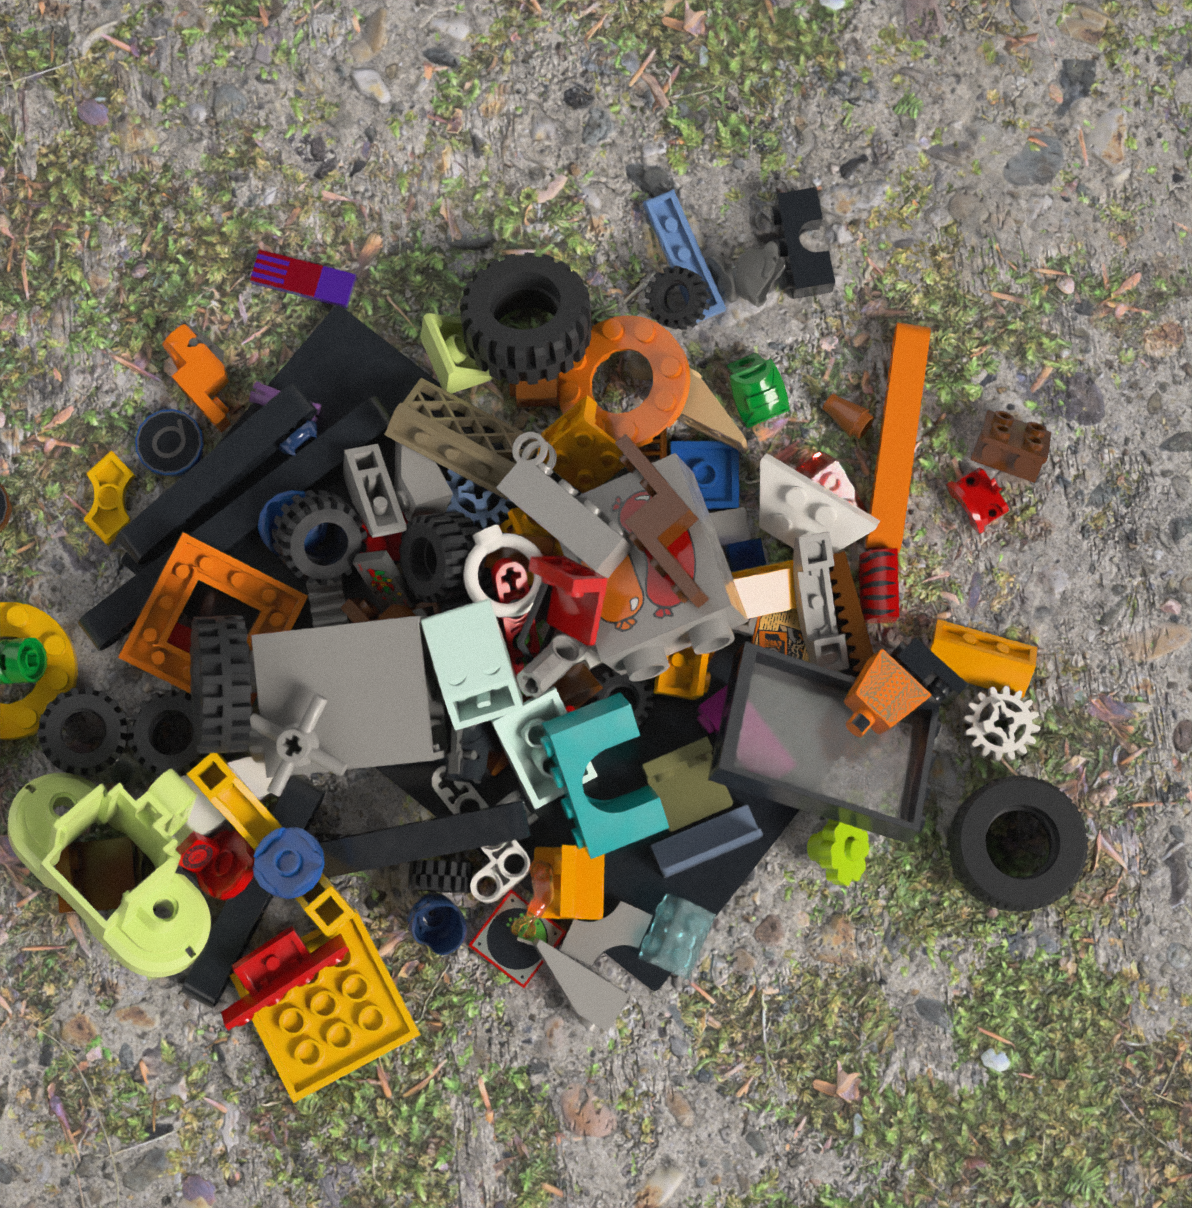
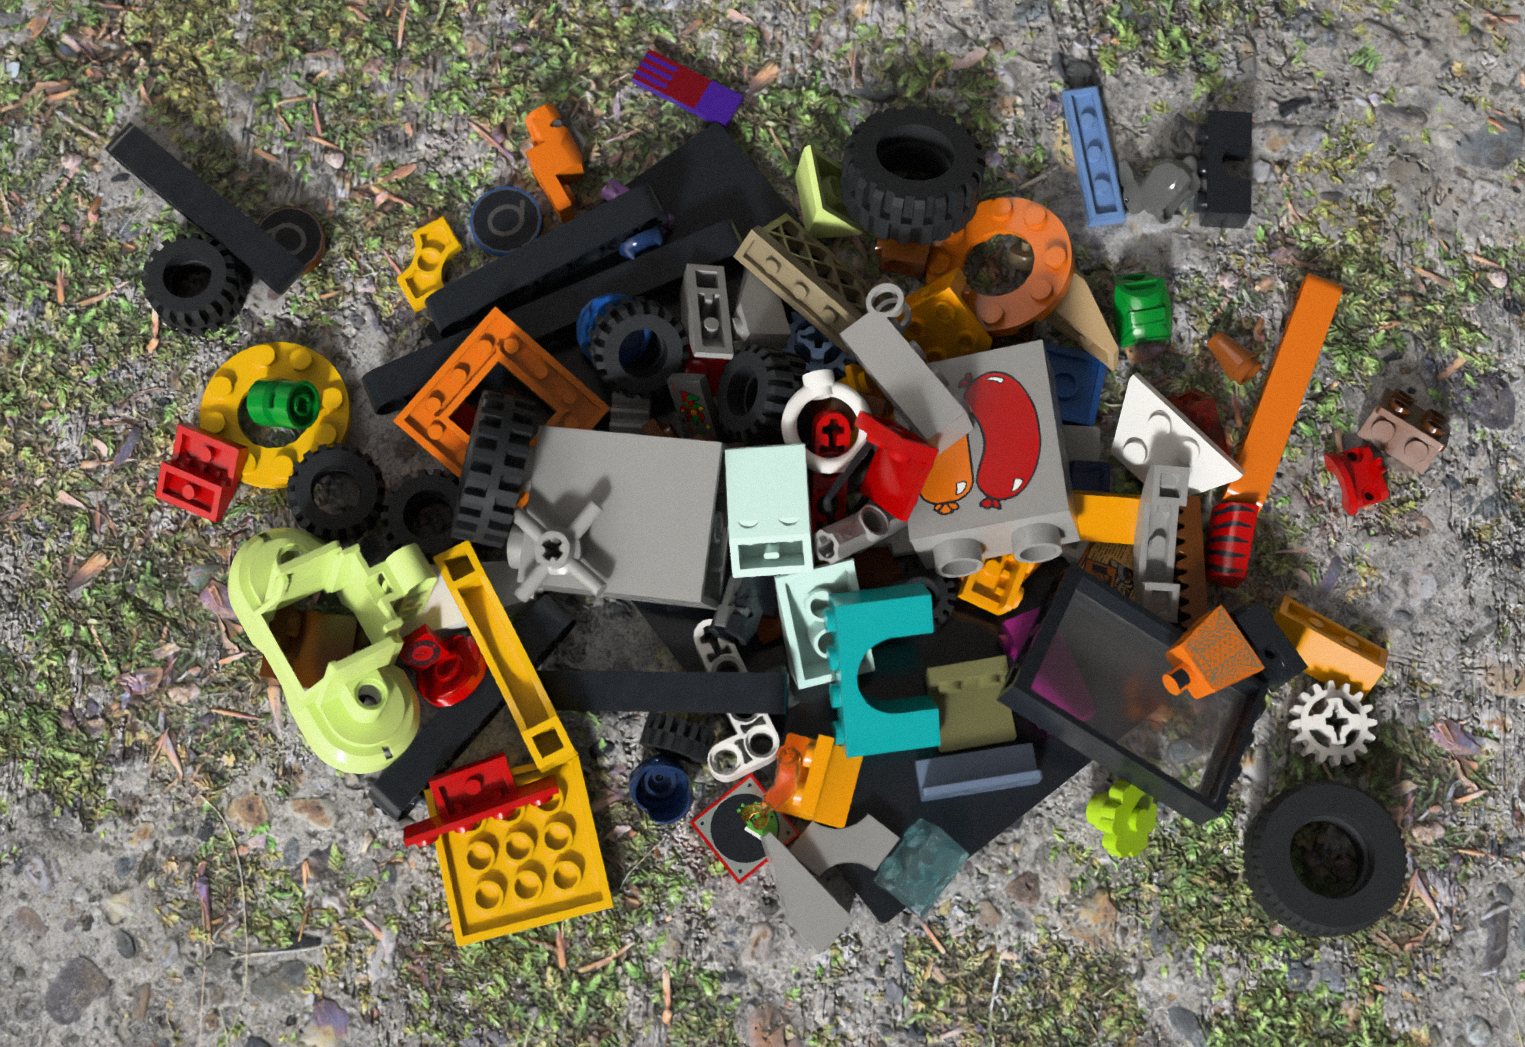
camera: 15 degrees right, 5 degrees down
(288, 862) = (517, 680): blue tile -> none
(660, 290) = (1069, 175): black tyre -> none
(660, 523) = (1010, 406): reddish brown bracket -> none

